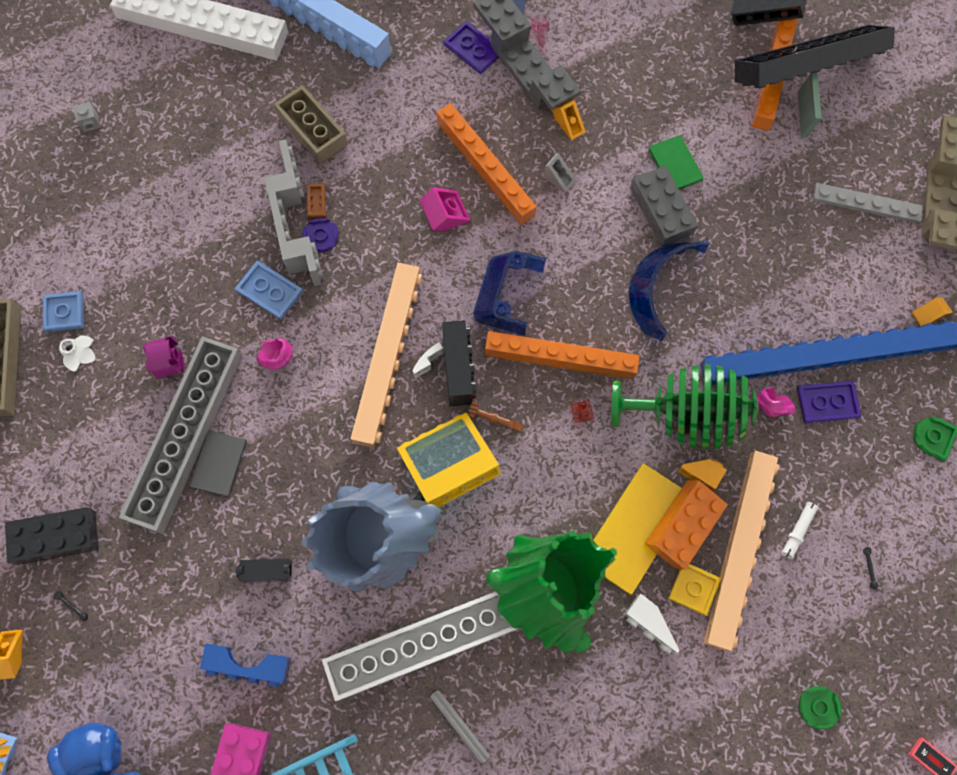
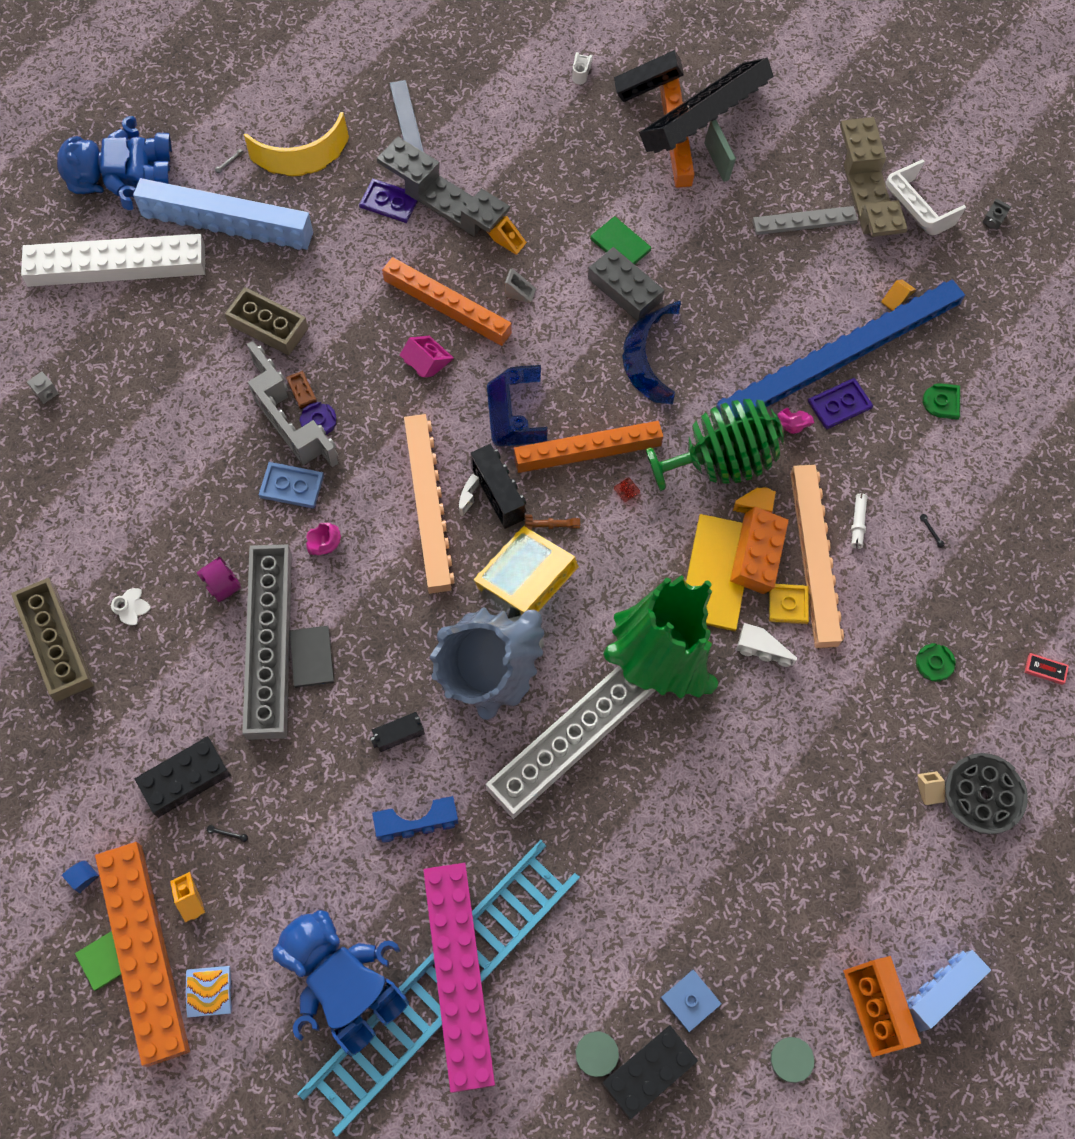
camera: 20 degrees left, 5 degrees down
(63, 311) = (100, 574): medium blue plate -> none
(460, 727) = (632, 798): light grey axle -> none
(540, 28) = (445, 162): clear pink bar -> none

